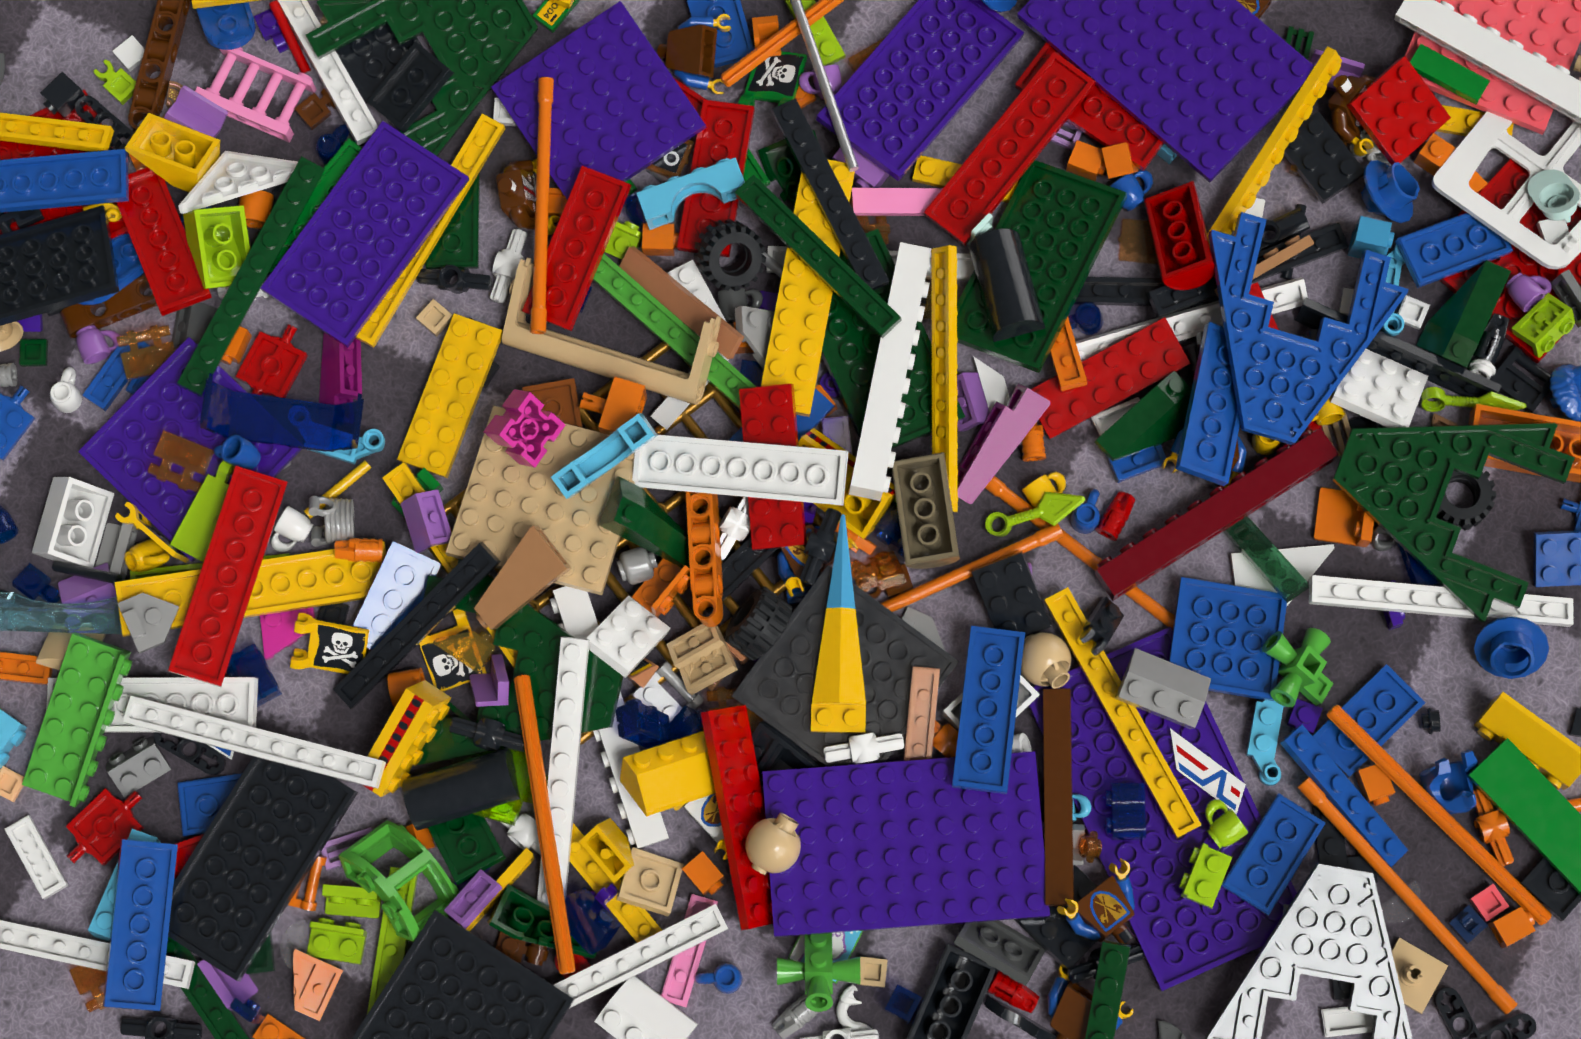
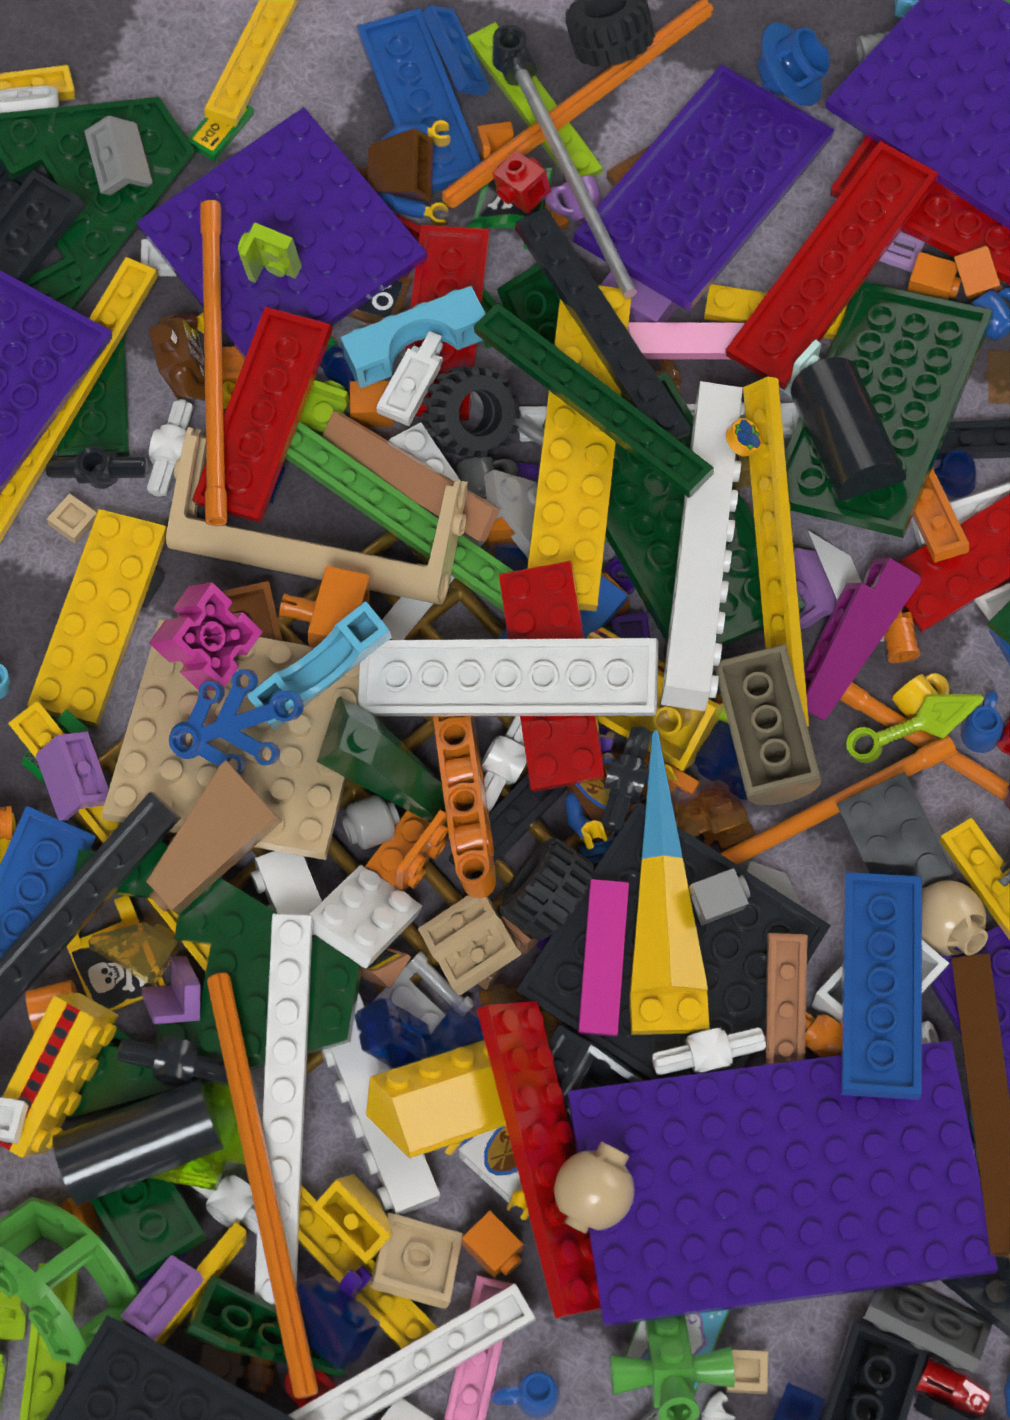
camera: 10 degrees left, 10 degrees down
(479, 31) = (117, 154): none -> light grey panel
(538, 497) = (229, 724): none -> blue plant
(582, 120) = (268, 249): none -> lime bracket
(688, 227) = (412, 380): none -> white hinge
(780, 69) = (521, 182): none -> red brick
(794, 676) = (603, 958): none -> dark pink tile
(879, 638) = (719, 896): none -> light grey brick
(927, 290) = (743, 437): none -> tile

